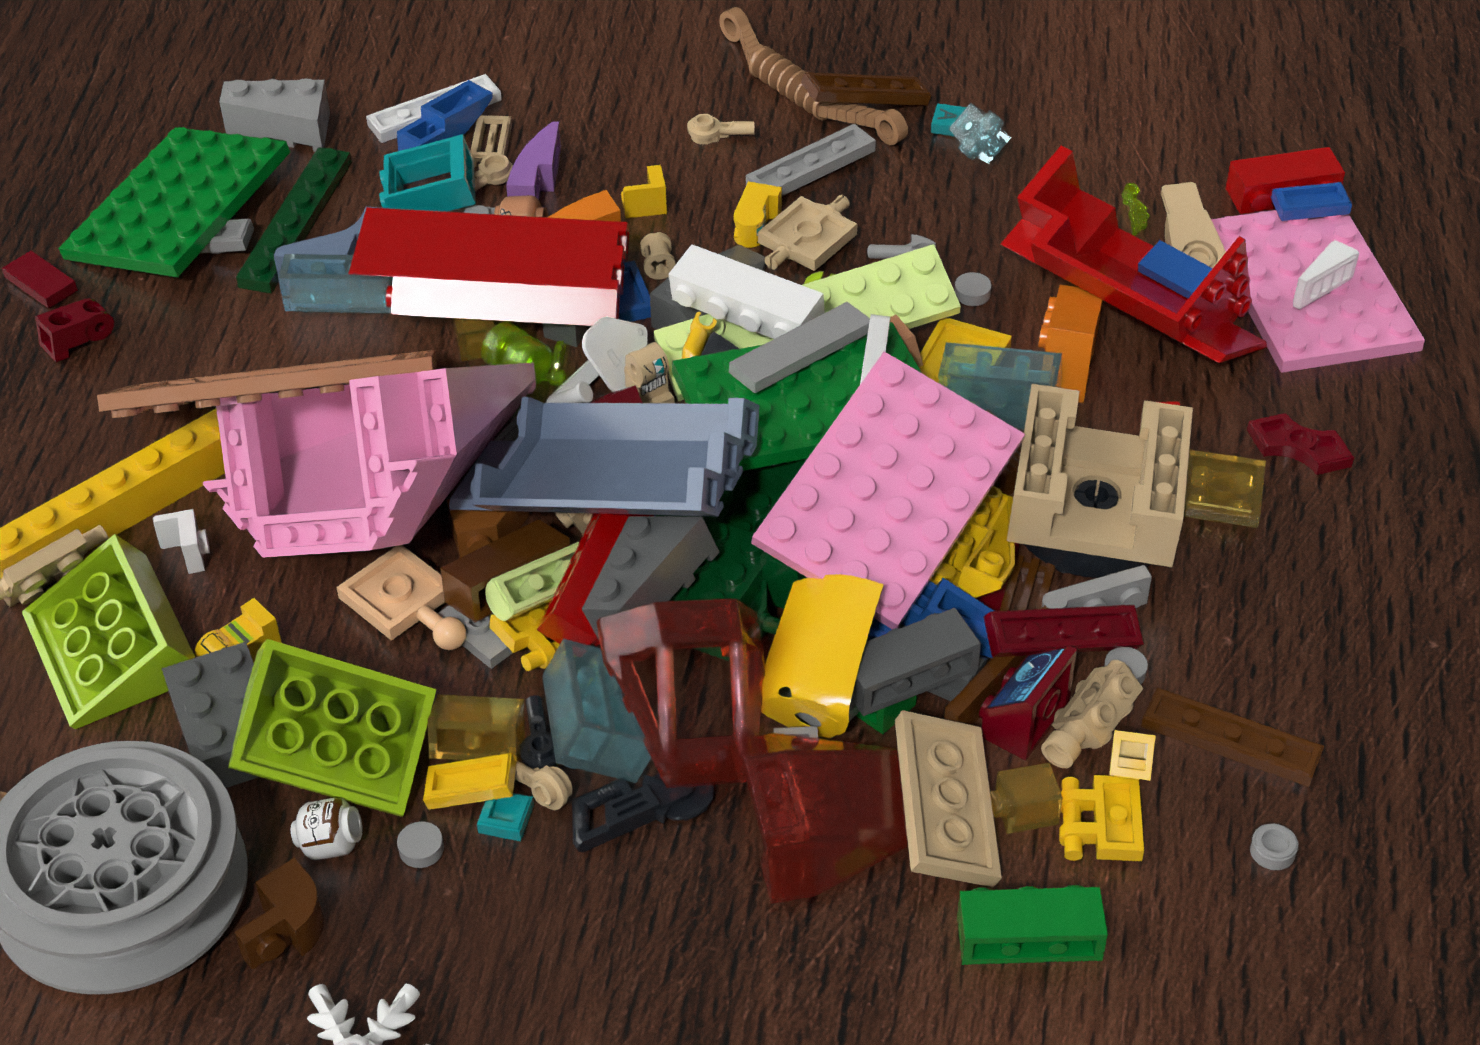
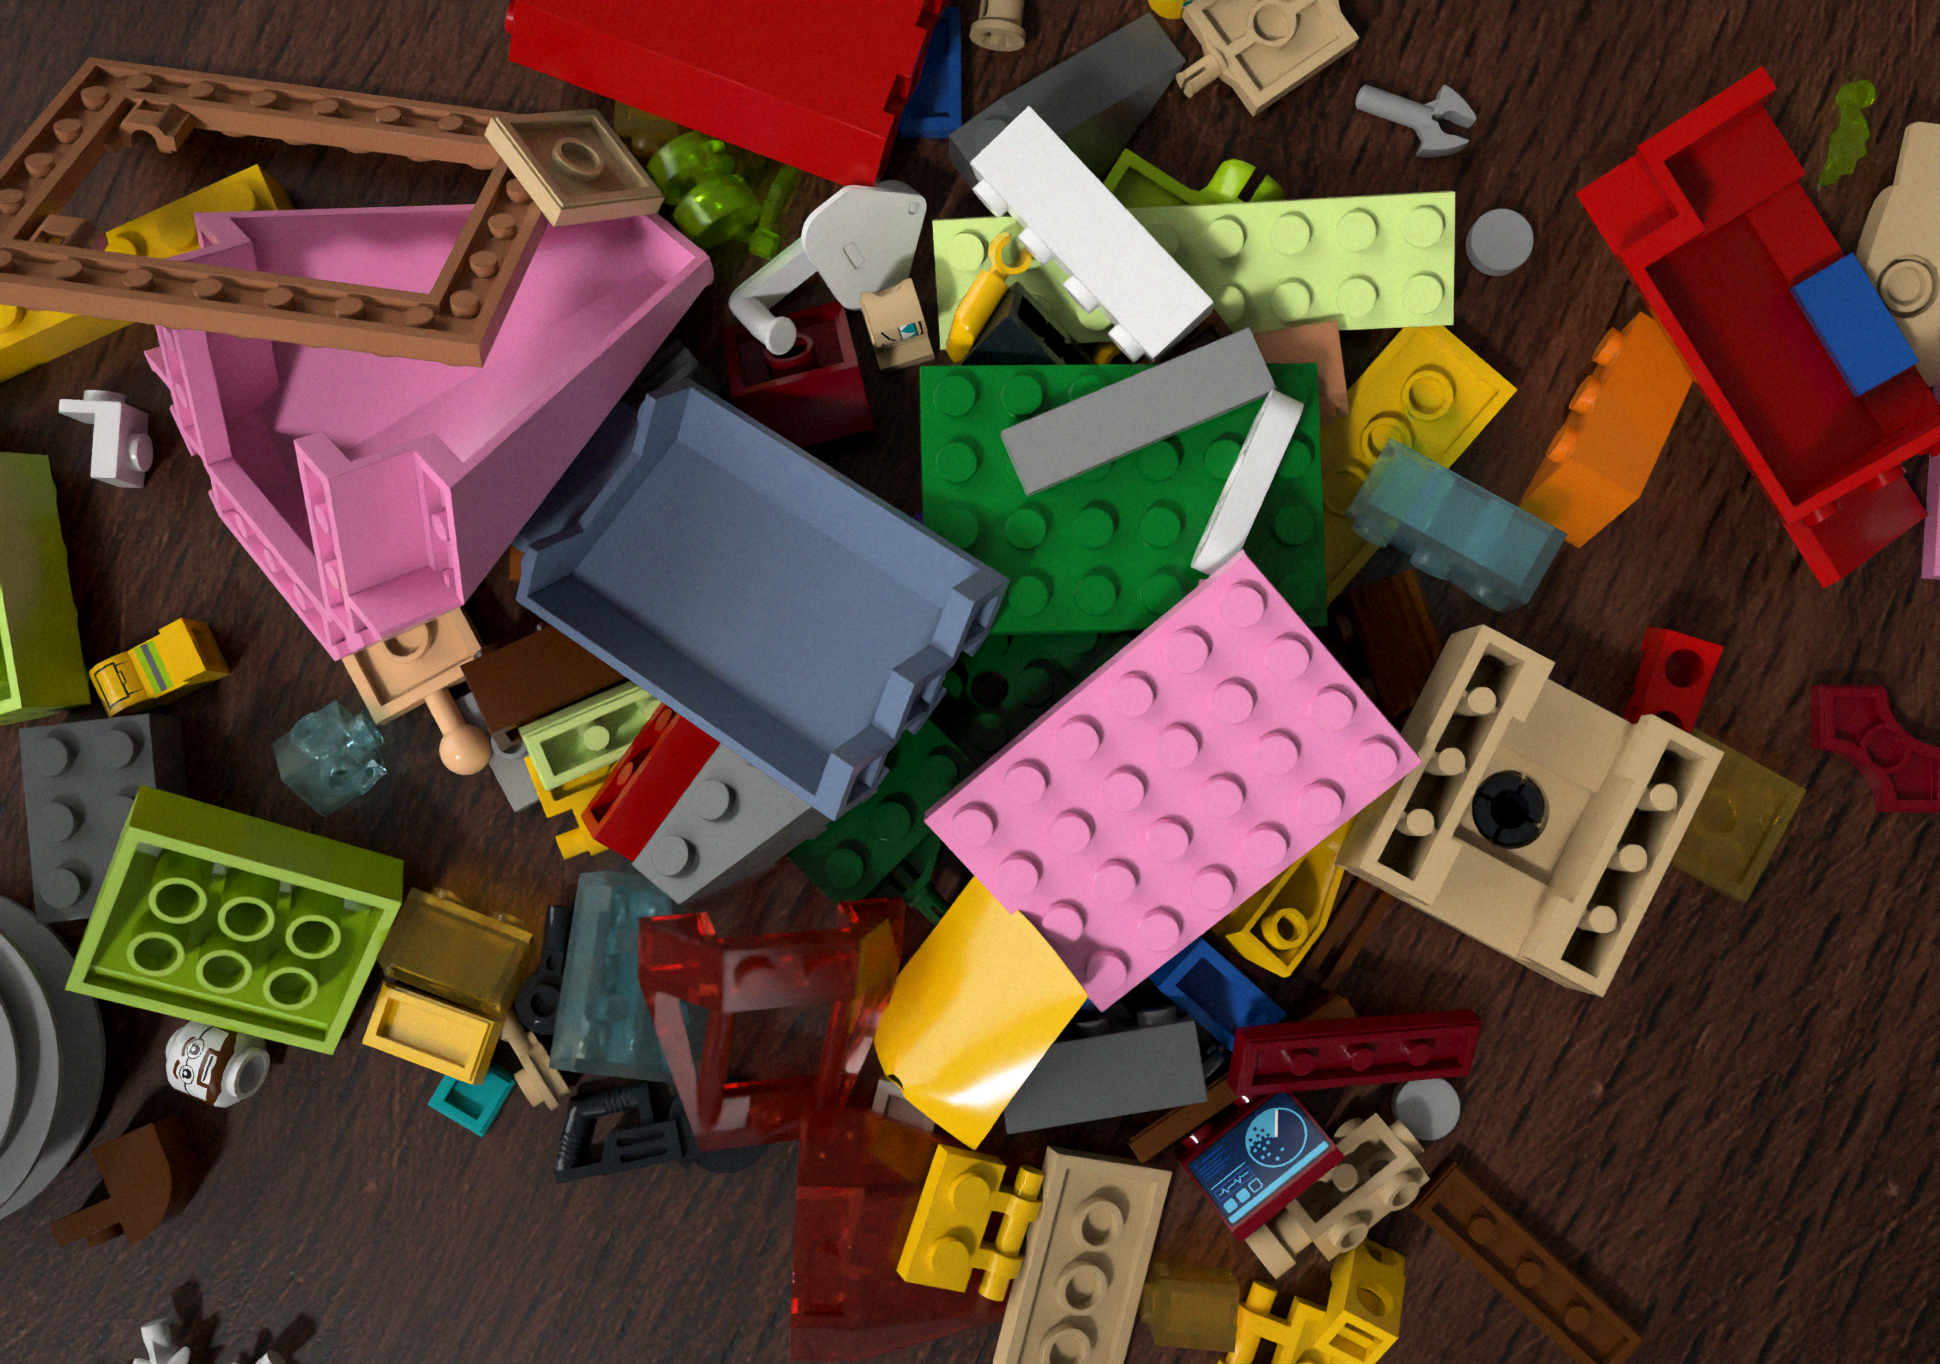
camera: 15 degrees right, 40 degrees up
(367, 645) = (330, 757): none -> clear light blue brick
(420, 844) = (345, 1109): light grey tile -> none
(442, 345) = (574, 166): none -> tan tile
(849, 760) = (953, 1218): none -> yellow plate
(1120, 588) = (1425, 983): light grey plate -> none

